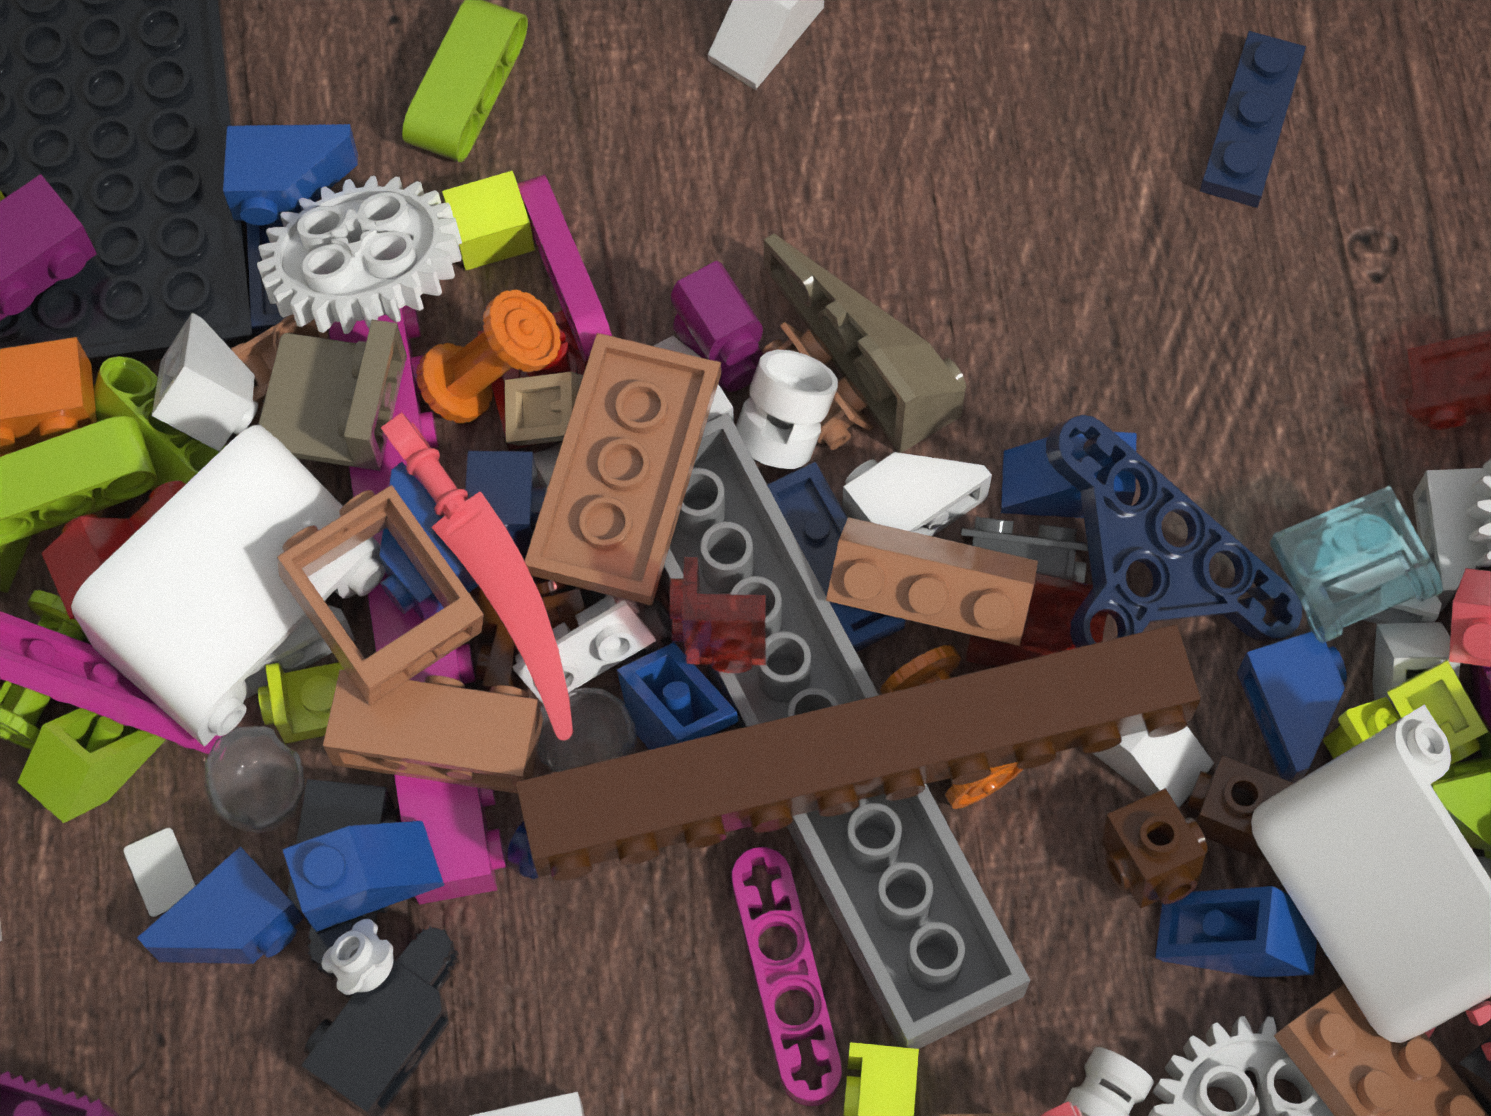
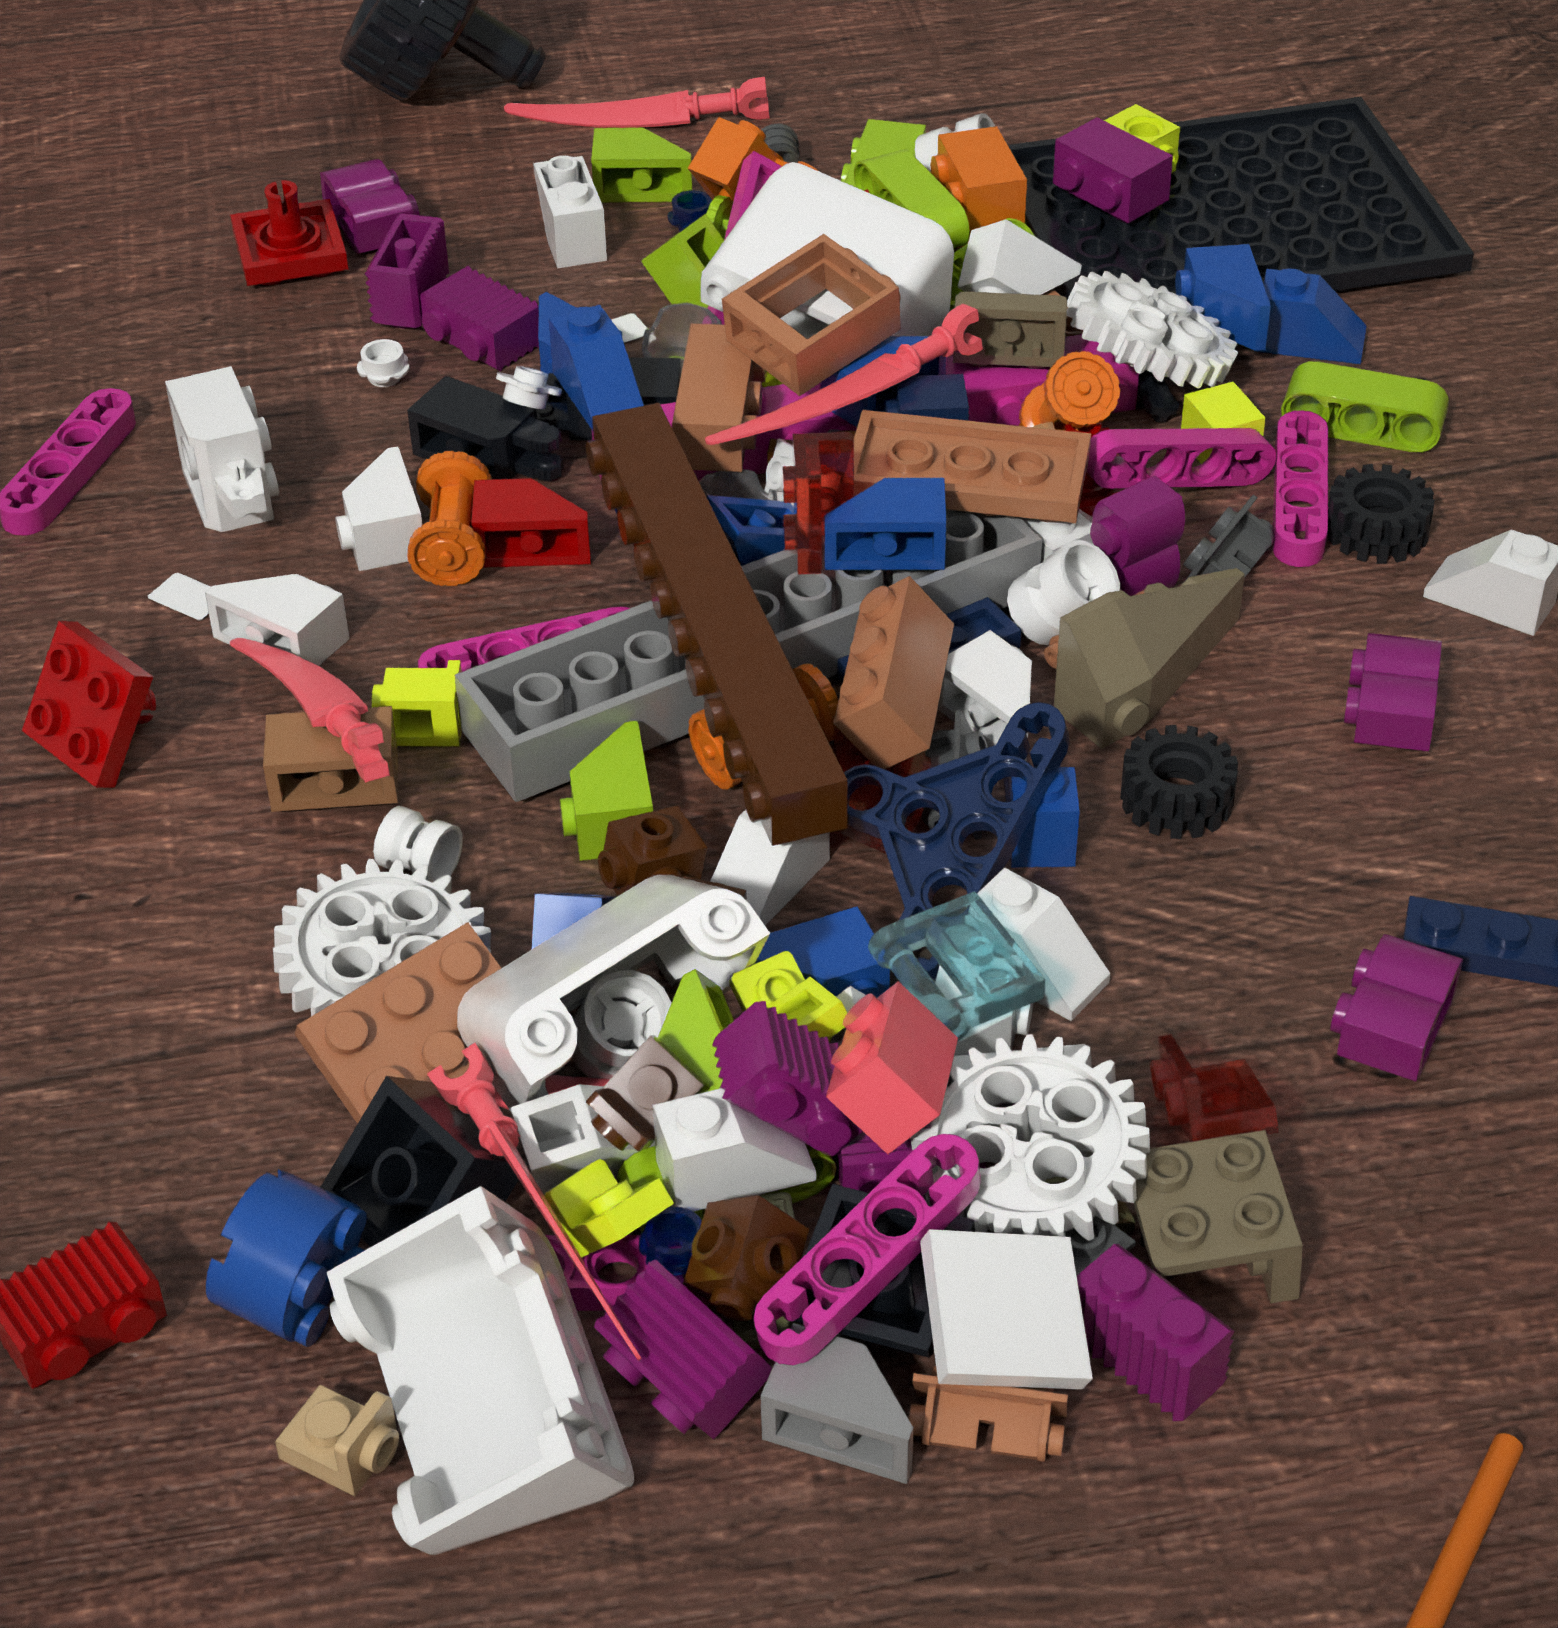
camera: 85 degrees right, 25 degrees down
(139, 1033) = (480, 318): none -> magenta brick
(303, 92) = (1311, 319): none -> blue slope
(559, 1063) = (446, 546): none -> orange hose
(569, 981) = (528, 525): none -> red slope
(585, 156) = (1300, 487): none -> dark pink beam
(639, 70) = (1380, 513): none -> black tyre
(676, 247) = (1238, 543): none -> dark grey hinge
(729, 536) = (889, 527): none -> blue slope
(929, 135) = (1395, 692): none -> magenta brick
(1045, 890) = (606, 788): none -> lime slope
(1049, 317) = (1172, 804): none -> black tyre
(1268, 500) = (1050, 940): none -> white slope
(1345, 213) = (1396, 1006): none -> magenta brick

